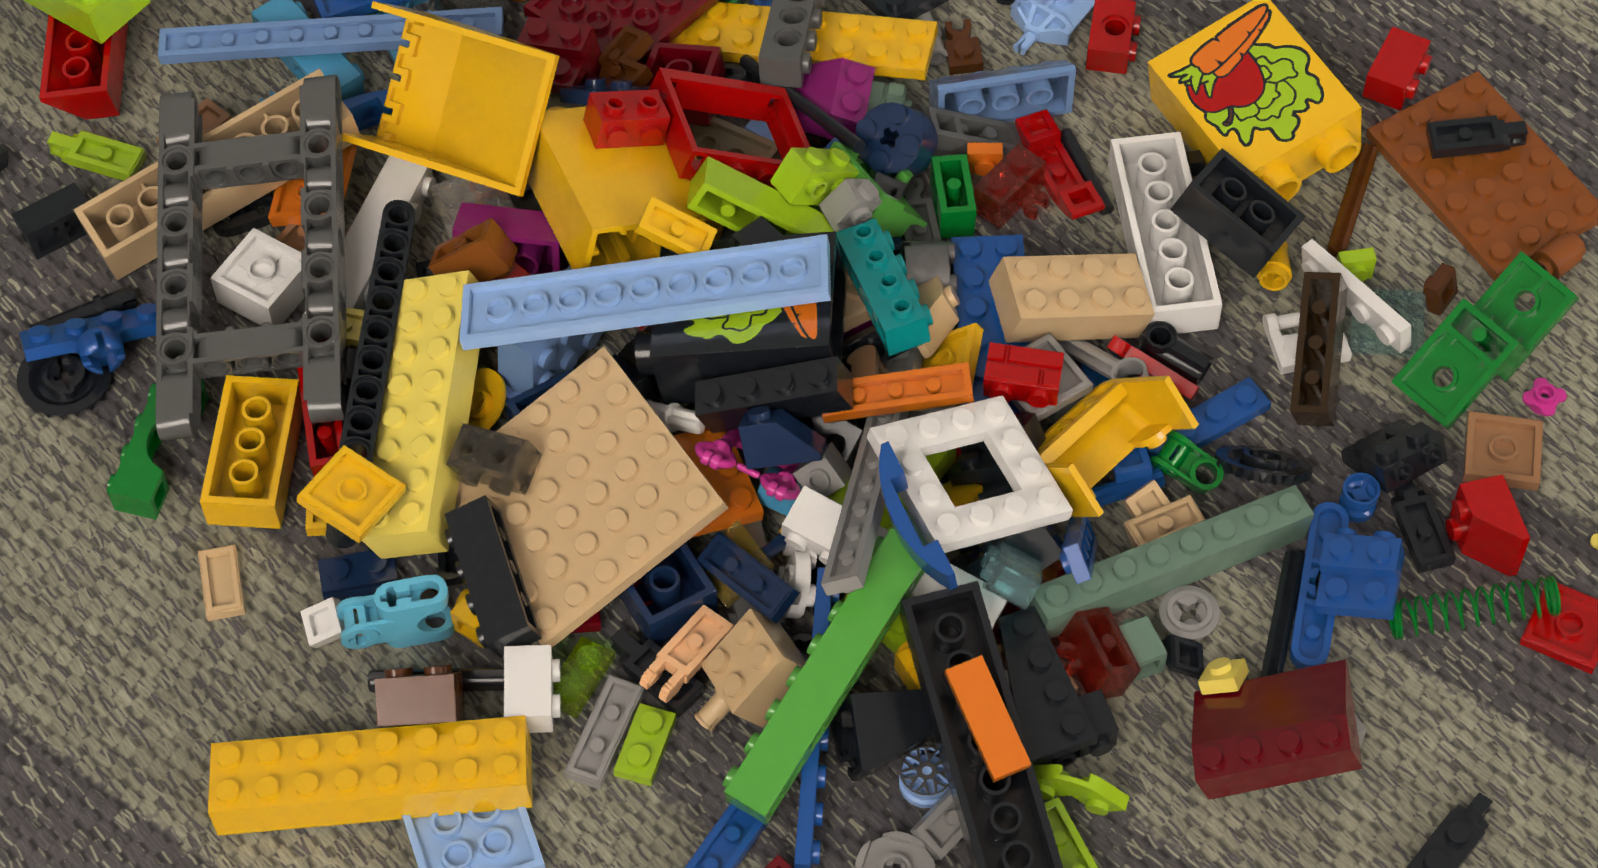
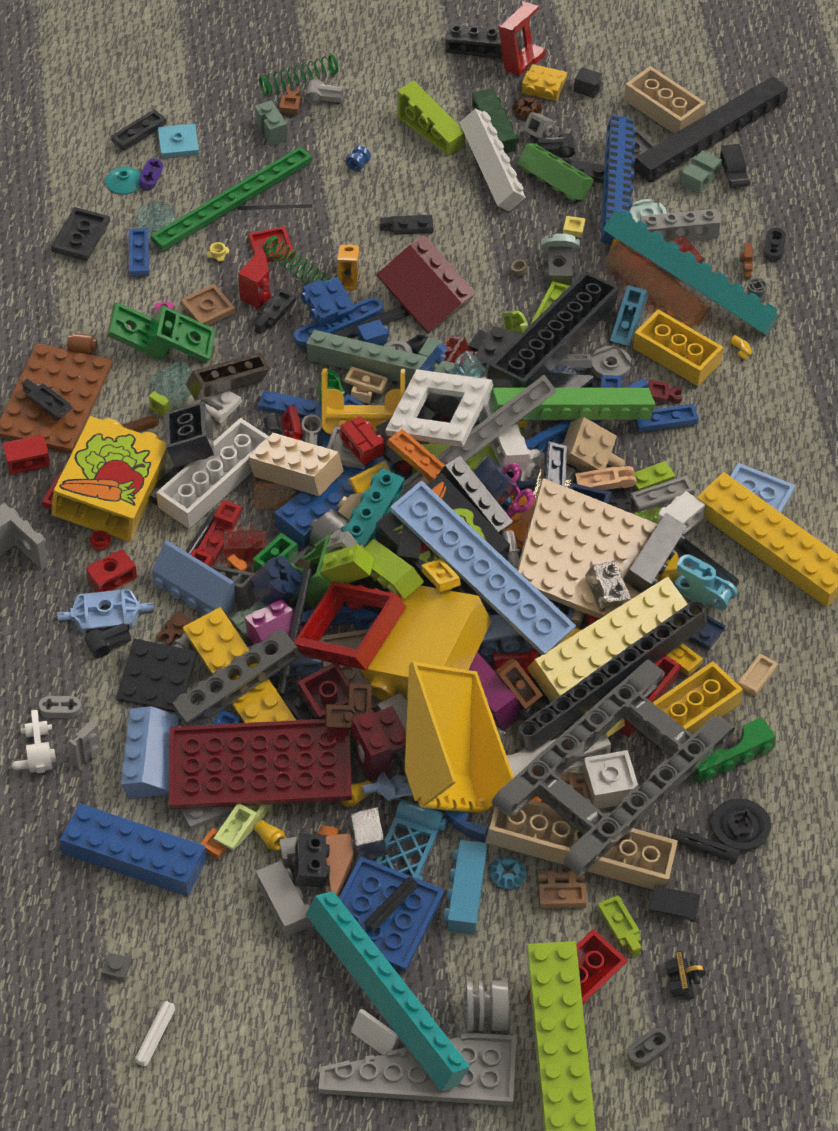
camera: 135 degrees left, 5 degrees down
(95, 338) = (712, 821): blue plate -> none
(304, 36) = (458, 863): medium blue plate -> none
(322, 623) = (732, 617): white plate -> none
(351, 493) = (687, 606): yellow plate -> none
(419, 698) = (728, 543): brick -> none
(580, 93) = (386, 684): dark blue plate -> none
(626, 118) = (398, 644): red brick -> none
(851, 830) = (611, 381): none -> blue plate
(928, 557) = (484, 404): blue slope -> none
(987, 718) = (538, 333): orange tile -> none
(1223, 676) = (416, 320): light yellow plate -> none
(1247, 602) = (373, 333): none -> blue brick
(1263, 465) = (297, 354): black gear -> none
(1360, 496) = (282, 333): blue wheel -> none
(1361, 300) = (180, 394): white plate -> none
(1397, 453) = (250, 330): black plate -> none
(1421, 672) = (348, 259): none -> light orange torso
(1440, 289) = (142, 370): reddish brown plate -> none

